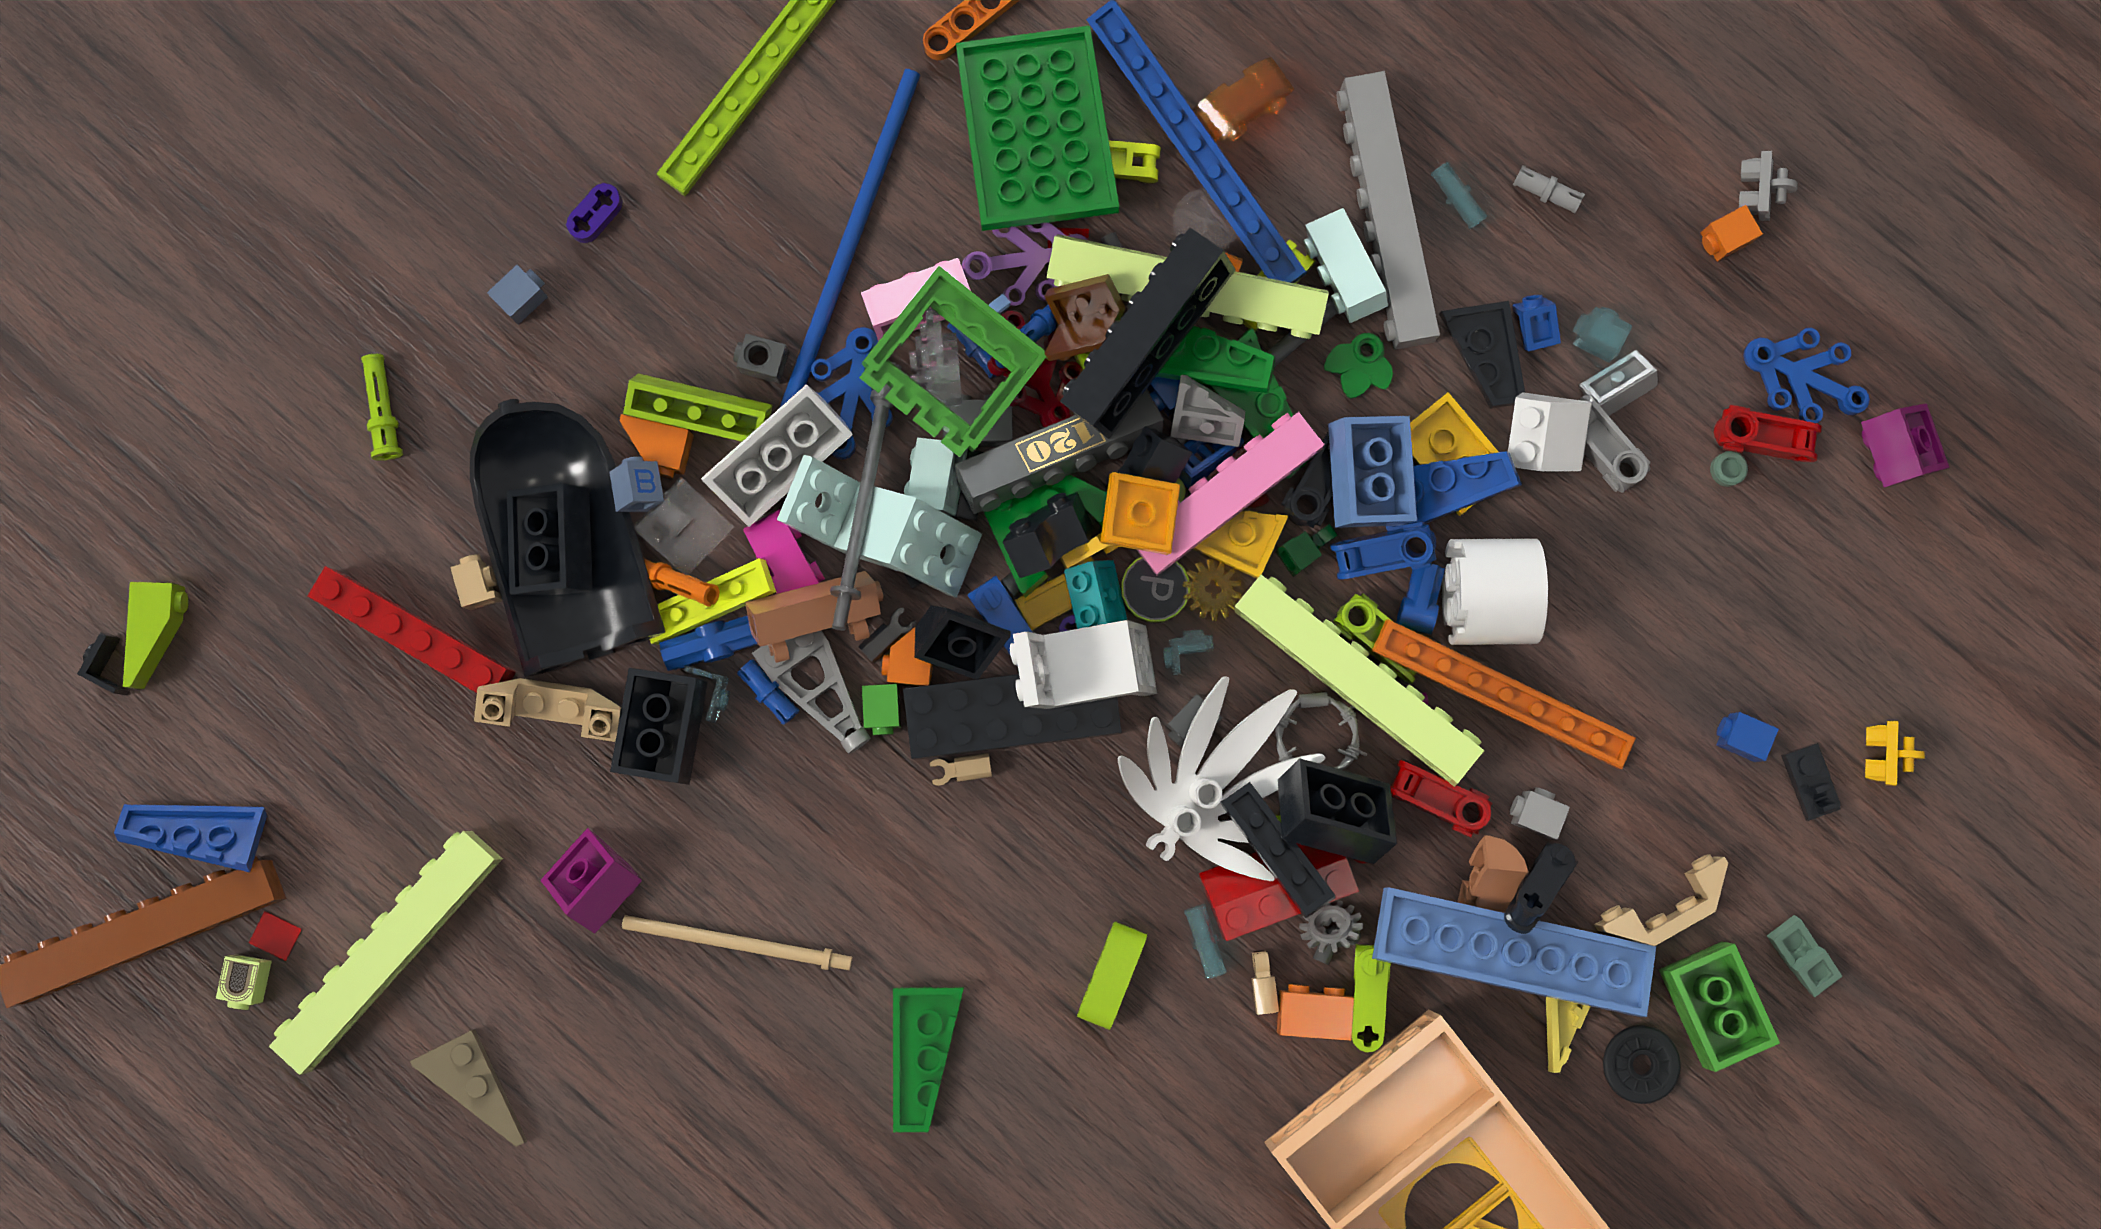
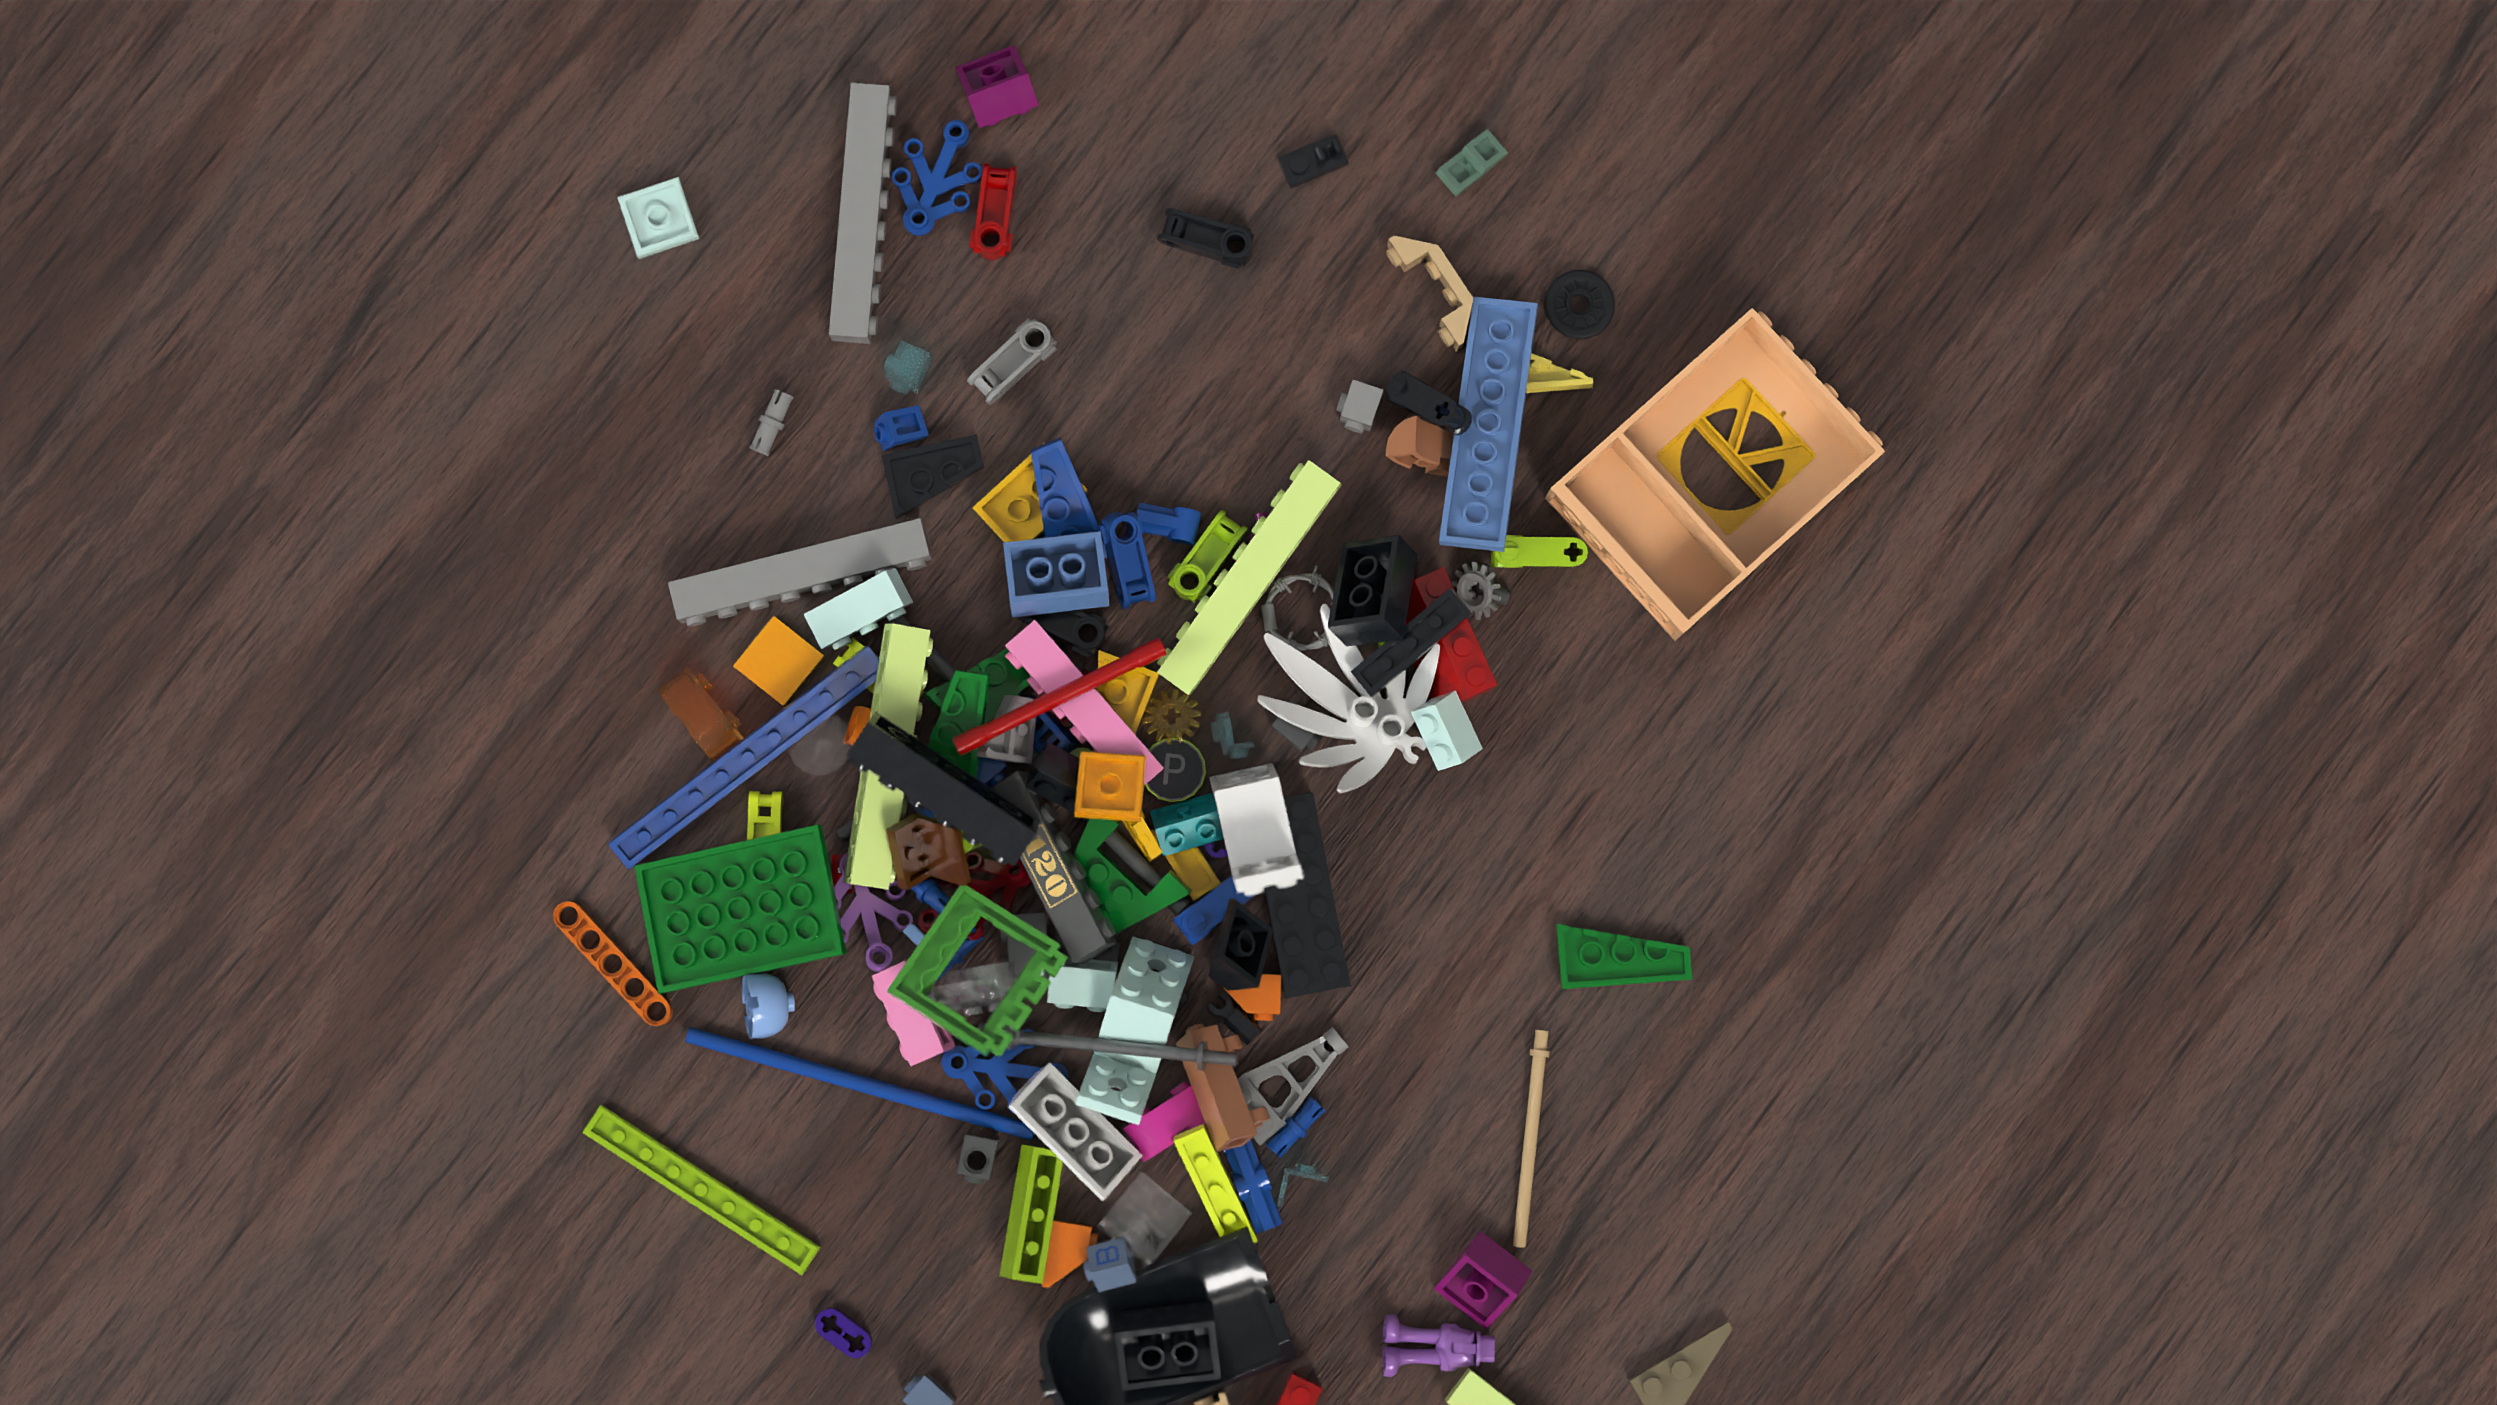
camera: 95 degrees left, 0 degrees up
(520, 842) = (1453, 1349): none -> medium lavender piece
(548, 701) = (1319, 1330): tan slope -> none
(659, 726) = (1336, 1226): black slope -> none
(664, 577) = (1201, 1214): orange pin -> none
(881, 708) = (1304, 1018): bright green brick -> none
(936, 150) = (765, 1004): none -> light blue cylinder
(964, 768) = (1354, 937): tan bar -> none
(1048, 534) = (1133, 871): black brick -> none
(1112, 975) = (1535, 788): lime beam -> none
(1179, 882) = (1446, 730): none -> light aqua brick
(1204, 379) = (982, 734): none -> red piece
(1205, 941) = (1498, 704): clear light blue pin -> none
(1264, 985) = (1533, 648): tan bar -> none
(1294, 184) = (779, 661): none -> light orange tile
(1304, 550) = (1129, 633): dark green piece -> none
(1315, 1014) = (1556, 600): orange brick -> none
(1359, 370) = (955, 590): green plate -> none
(1440, 798) = (1352, 496): red piece -> none
(1458, 195) = (781, 506): clear light blue pin -> none
(1495, 591) = (1160, 456): white brick -> none
(1503, 694) = (1252, 444): orange tile -> none
(1549, 433) = (1007, 413): white slope -> none
(1621, 382) = (952, 348): light grey slope -> none
(1719, 1006) = (1522, 238): bright green brick -> none
(1729, 468) = (1027, 245): sand green tile -> none
(1730, 233) = (805, 252): orange brick -> none
(1731, 660) = (1206, 237): none -> black piece
(1746, 736) = (1276, 222): blue brick -> none
(1762, 170) = (743, 225): light grey hips -> none
(1771, 294) = (861, 213): none -> light grey brick
(1772, 85) = (658, 217): none -> light aqua tile
(1887, 737) = (1298, 94): yellow hips -> none

